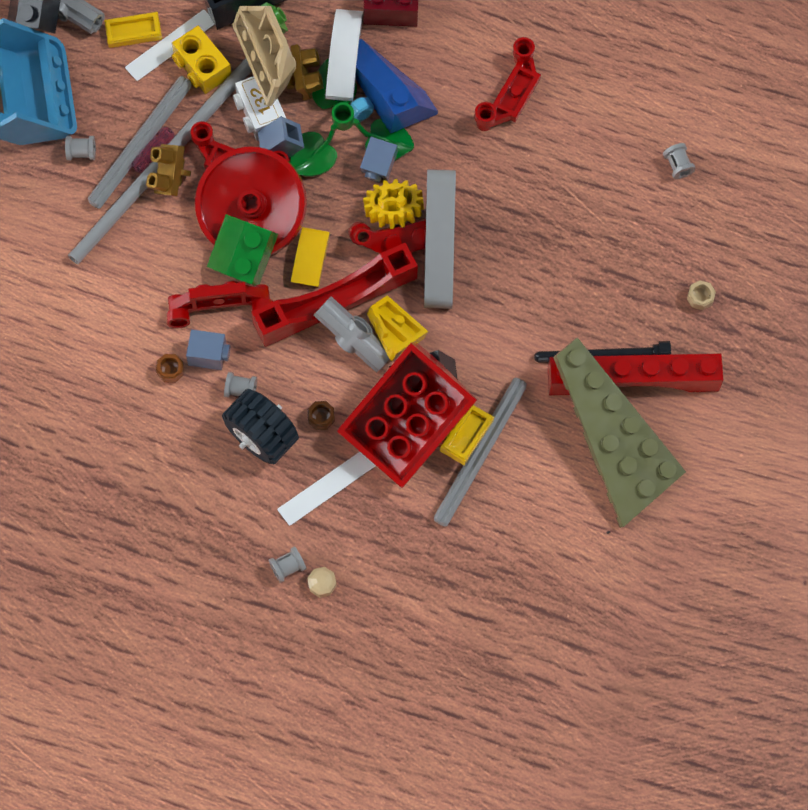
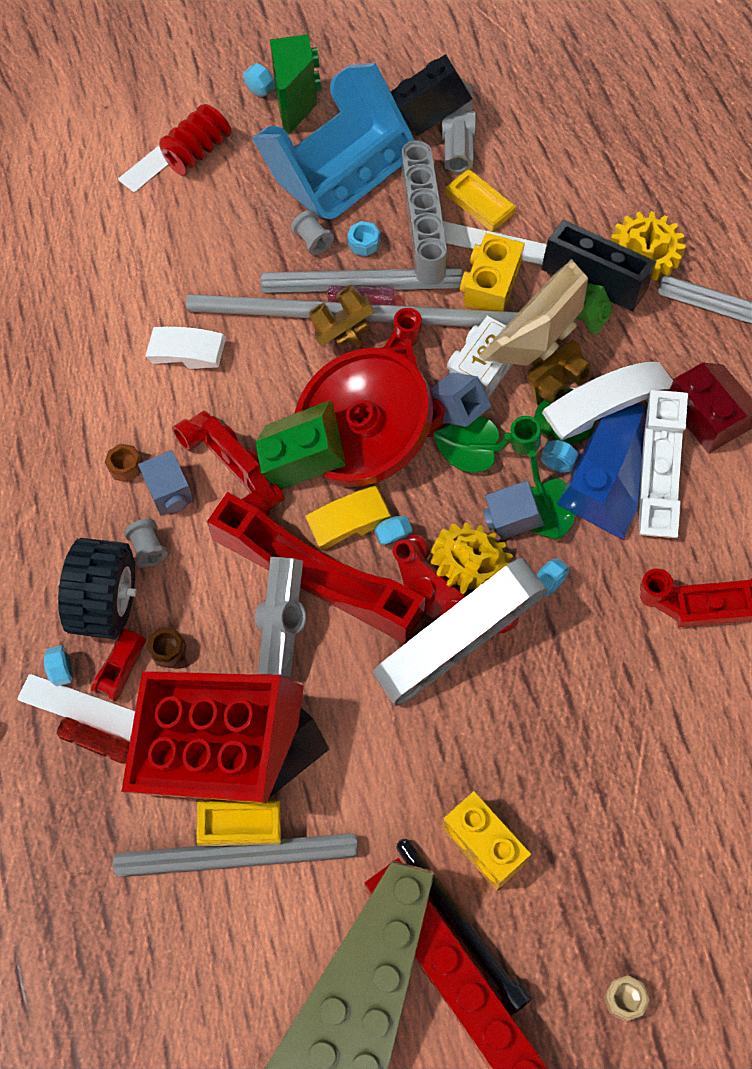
camera: 60 degrees right, 5 degrees down
(109, 119) = (363, 238): none -> medium azure tile
(109, 279) = (187, 345): none -> white slope
(131, 77) = (424, 213): none -> light grey beam
(288, 484) = (58, 665): none -> medium azure tile
(310, 447) = (121, 660): none -> red bar
(340, 236) = (393, 529): none -> medium azure tile
(352, 491) = (93, 739): none -> clear red axle
(394, 326) = (323, 657): yellow wing -> none
(408, 57) = (661, 464): none -> white slope
(434, 162) = (553, 575): none -> medium azure tile
(568, 309) = (485, 840): none -> yellow brick

